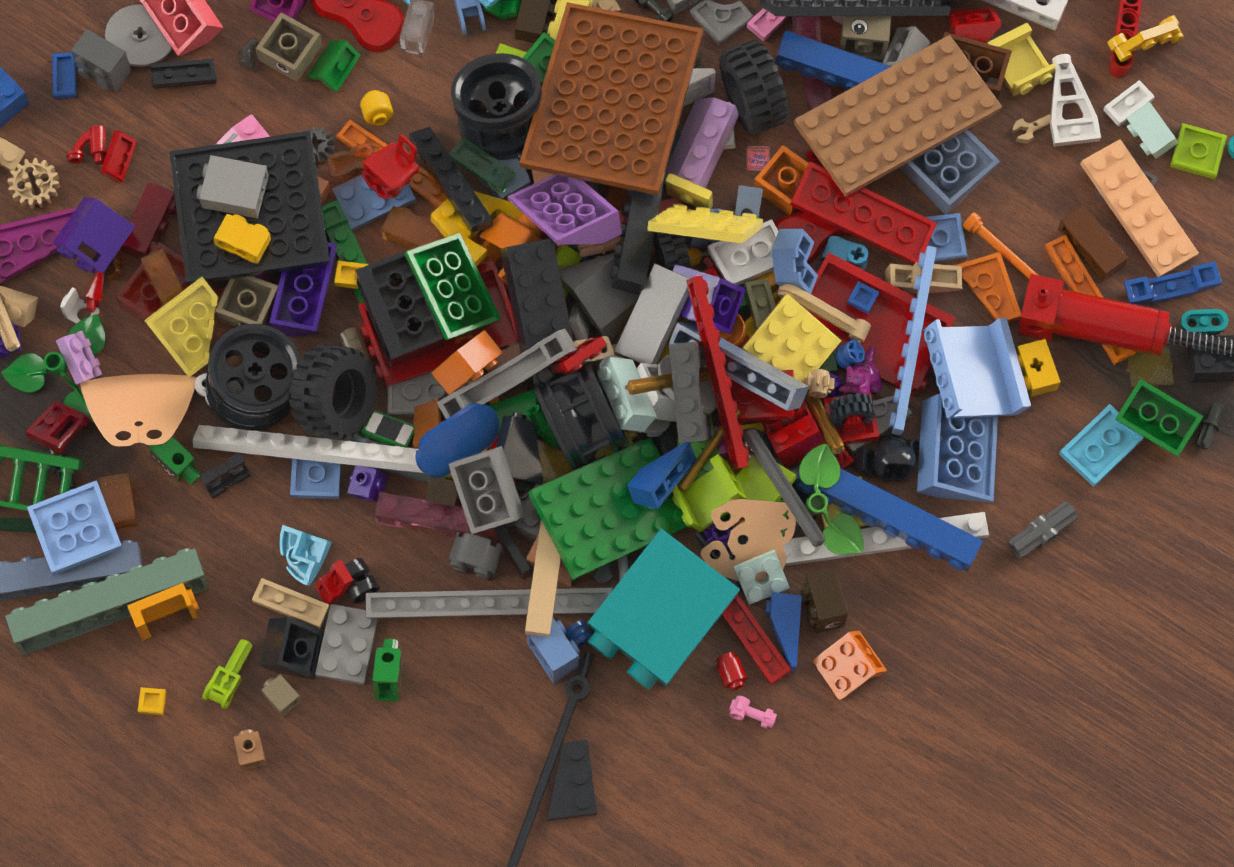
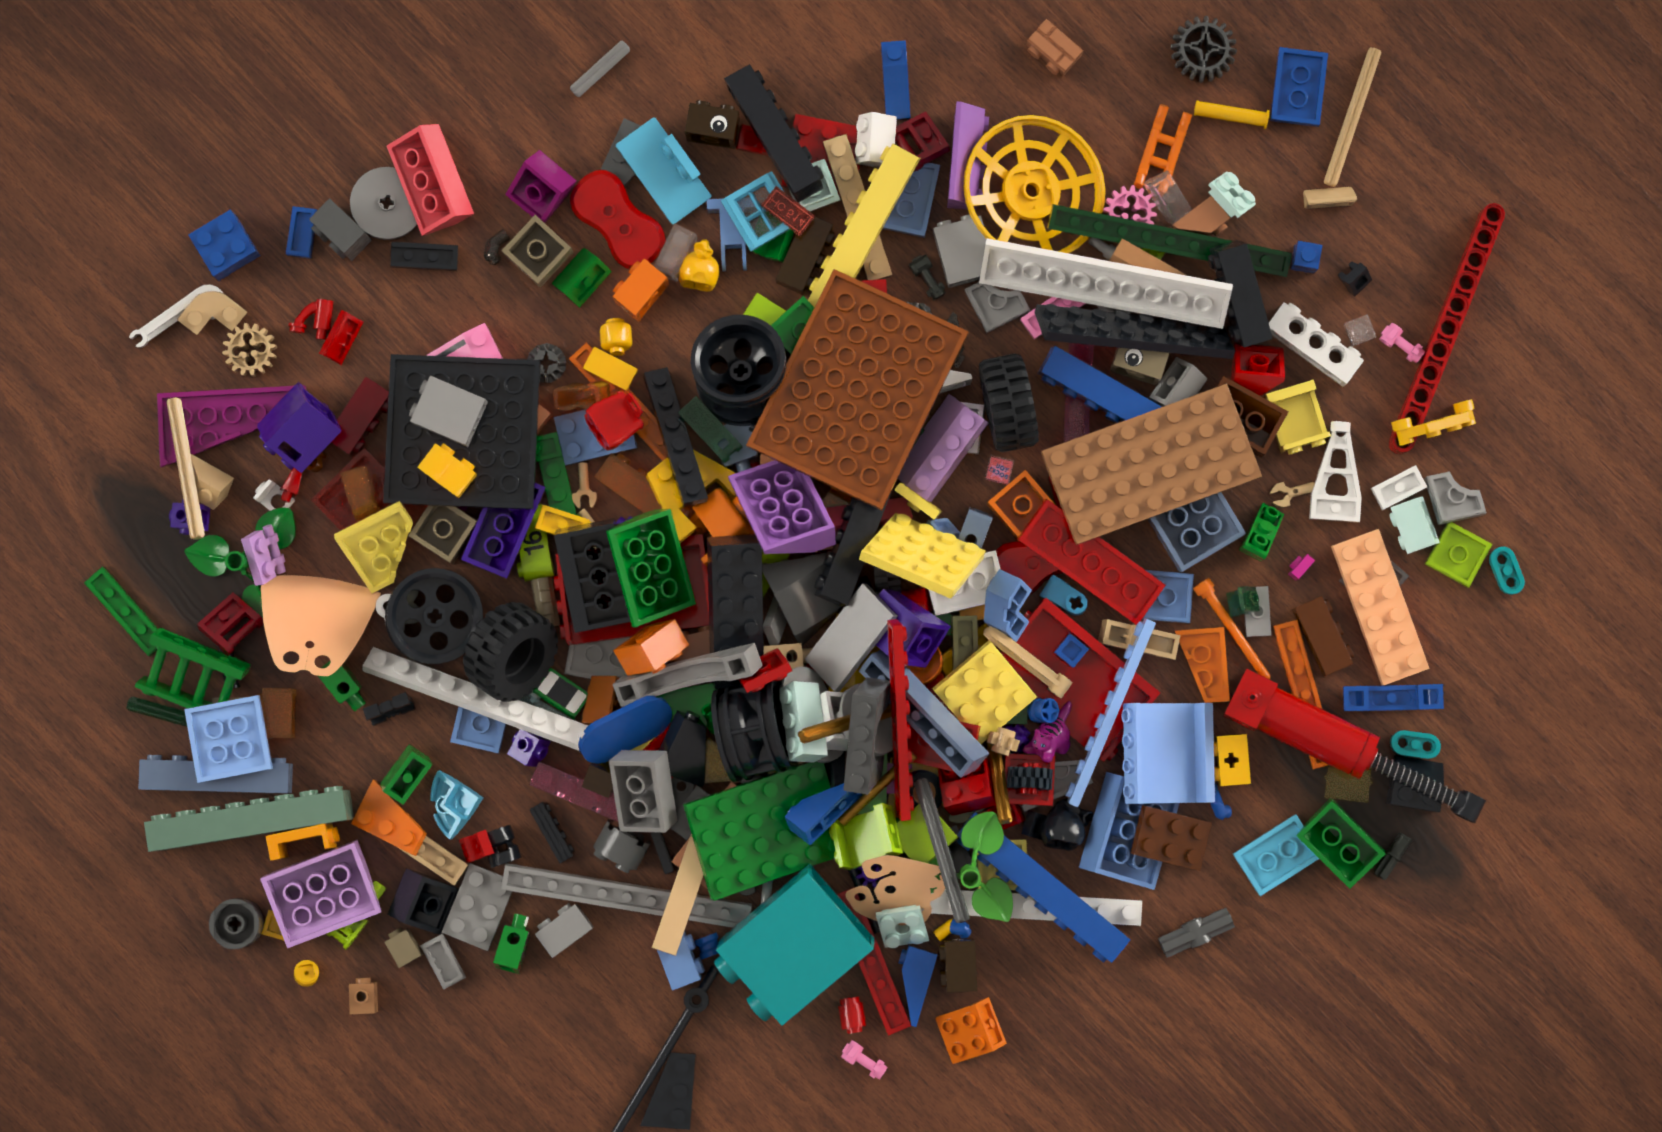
camera: 15 degrees right, 15 degrees up
(100, 696) = (228, 935): none -> dark grey brick
(189, 739) = (306, 973): none -> yellow tile
(190, 656) = (321, 893): none -> lavender slope
(243, 579) = (388, 821): none -> orange wing
(253, 531) = (406, 774): none -> green brick
(322, 701) = (443, 961): none -> light grey plate
(338, 309) = (535, 553): none -> lime door
(372, 244) = (584, 487): none -> tan bar
(375, 133) = (610, 369): none -> yellow tile
(391, 60) = (640, 289): none -> orange brick
(401, 557) = (551, 832): none -> black piece
(434, 647) = (563, 930): none -> light grey brick
(442, 35) = (699, 268): none -> yellow piece
(800, 577) = (952, 927): none -> arm
(997, 447) = (1171, 838): none -> reddish brown plate
(1011, 225) = (1243, 601): none -> clear green bracket
(1013, 164) = (1261, 532): none -> green slope
(1026, 235) = (1259, 622): none -> light grey plate
(1036, 414) = (1220, 810): none -> blue arm
(1056, 186) = (1300, 566): none -> dark pink plate
(1180, 105) = (1453, 501): none -> light grey tile

